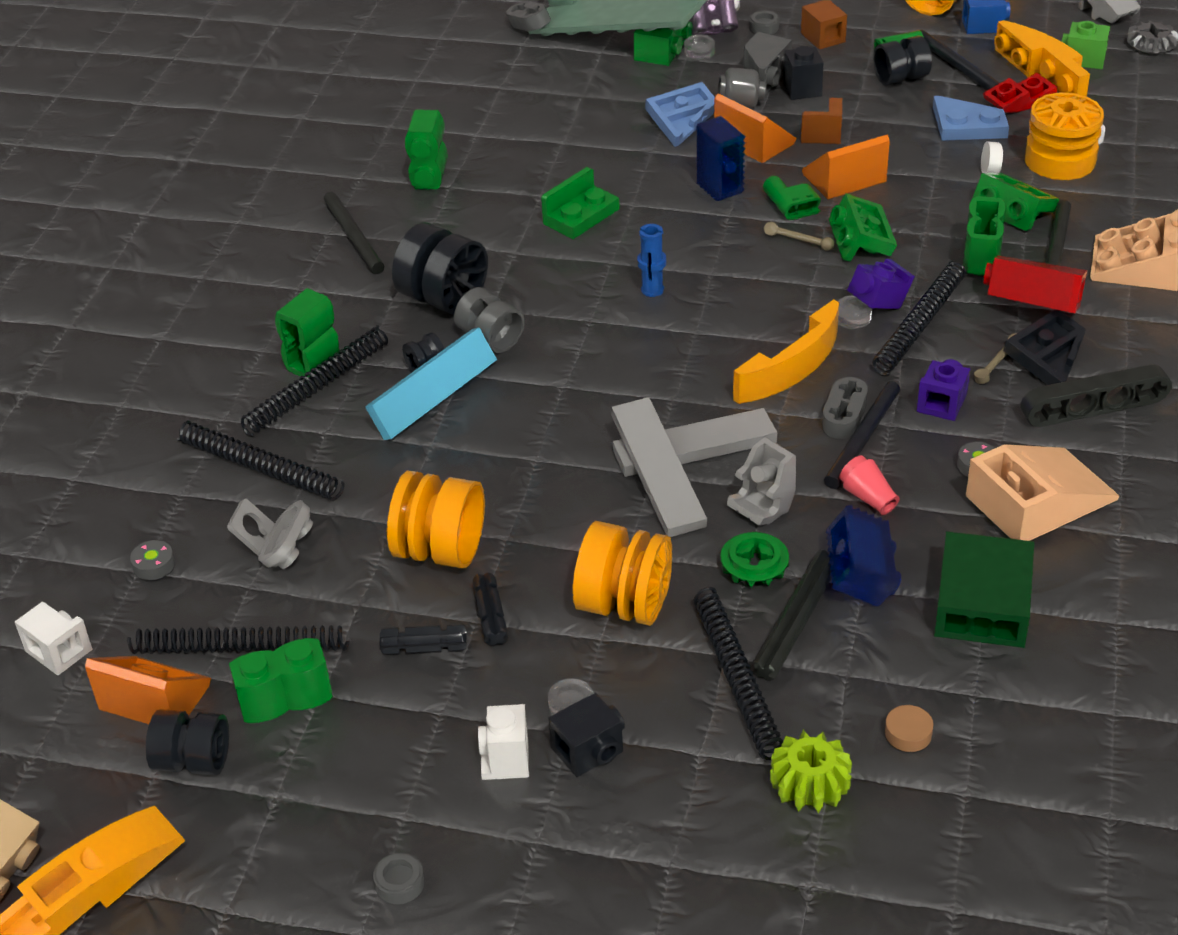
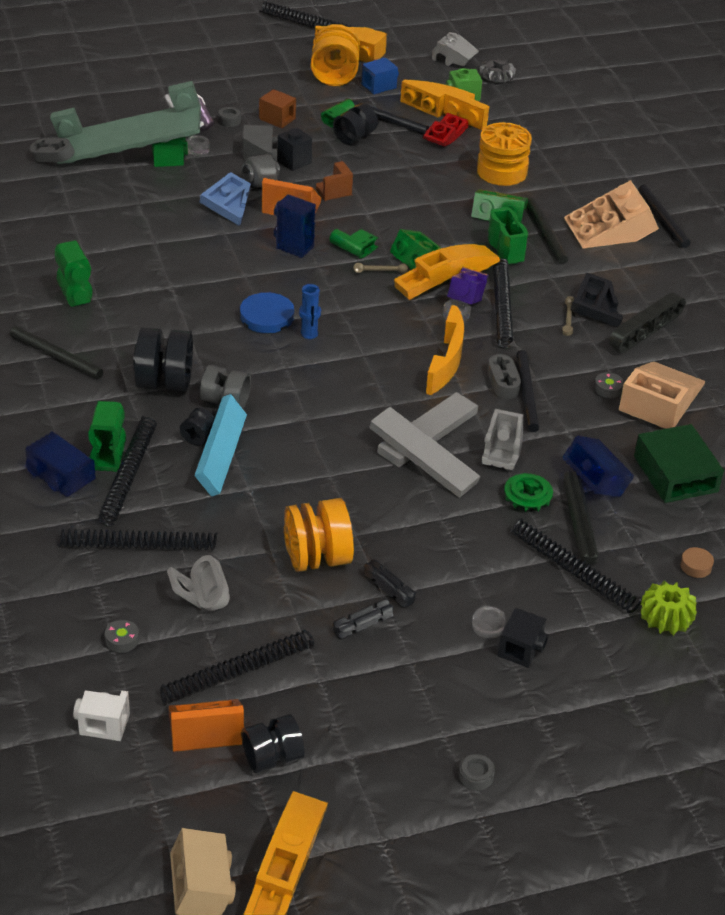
camera: 35 degrees left, 0 degrees up
(244, 351) = (59, 464): none -> clear blue brick
(281, 680) = (299, 679): green brick -> none
(504, 743) = (479, 662): white brick -> none
(577, 204) = (211, 287): green bracket -> none
(613, 251) = (267, 312): none -> blue tile
(622, 572) = (470, 527): light orange wheel -> none
(850, 167) = (379, 211): orange slope -> none
(866, 482) = (561, 421): coral cone -> none
(870, 245) = (441, 265): none -> light orange slope
(947, 379) = (556, 338): dark purple brick -> none
(968, 120) = (425, 157): medium blue wing -> none
(991, 157) = (465, 181): white tile -> none
(1036, 283) = (565, 258): red slope -> none

